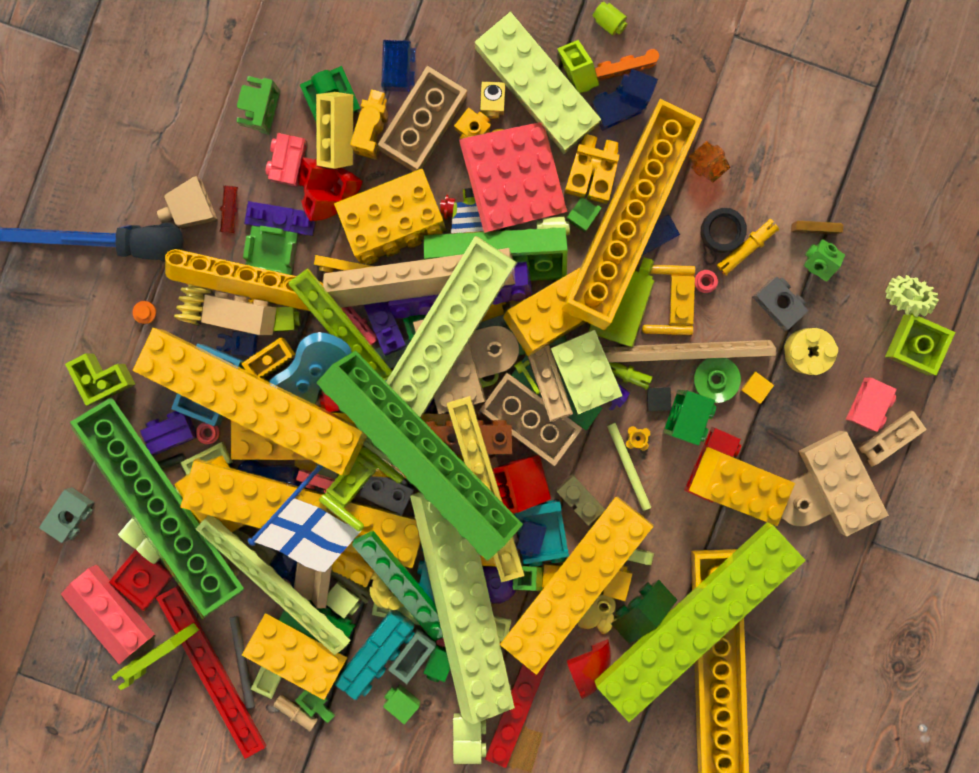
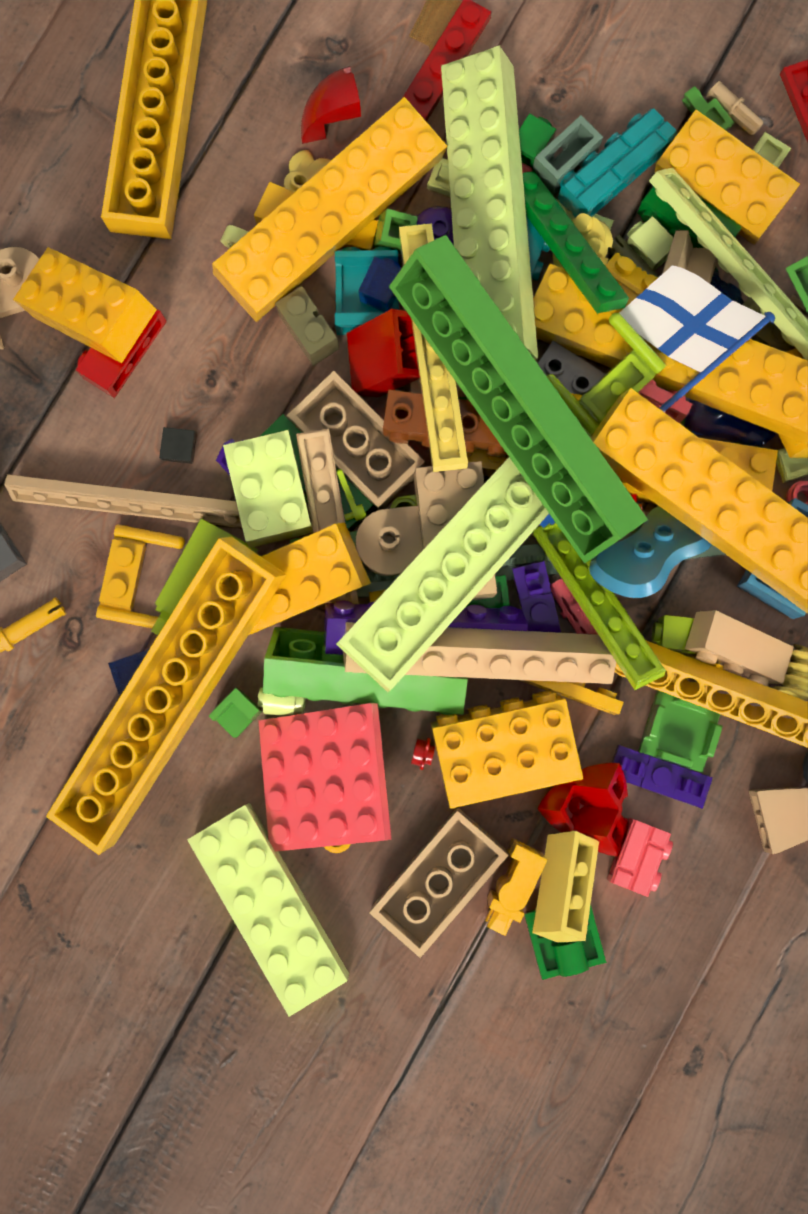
camera: 165 degrees left, 5 degrees down
(228, 209) = (731, 800): clear red pin -> none
(240, 343) = (743, 609): clear blue plate -> none
(242, 662) = (798, 197): dark grey bar -> none
(258, 104) = (668, 942): bright green panel -> none
(269, 358) = (704, 580): yellow brick -> none
(397, 66) = (462, 967): clear blue brick -> none
(401, 703) = (591, 97): bright green brick -> none
(466, 215) = (398, 735): torso -> none
(468, 741) = (511, 30): yellowish green brick -> none
(470, 120) = (369, 871): yellow brick -> none
(492, 99) = (335, 895): light yellow brick -> none
(578, 66) = (207, 922): lime slope -> none
(594, 162) = (210, 782): yellow hips -> none
(607, 70) = (139, 912): orange plate -> none
(610, 18) = (150, 984): lime brick -> none
(615, 109) = (160, 857): clear blue brick -> none
(629, 467) = (234, 362): yellowish green bar -> none
(630, 375) = (211, 482): lime pin -> none
(638, 87) = (125, 876): clear blue brick -> none
(642, 443) = (213, 388): yellow plate -> none
(644, 611) = (244, 161): dark green brick -> none
(689, 417) = (138, 405): green brick -> none
(699, 621) = (173, 131): lime brick -> none
(709, 161) = (47, 756): clear orange brick -> none
(712, 278) = (75, 593): coral plate -> none
(729, 379) = (83, 446): bright green dish -> none
(741, 230) = (22, 655): black tyre -> none
(757, 387) = (42, 439): yellow tile -> none

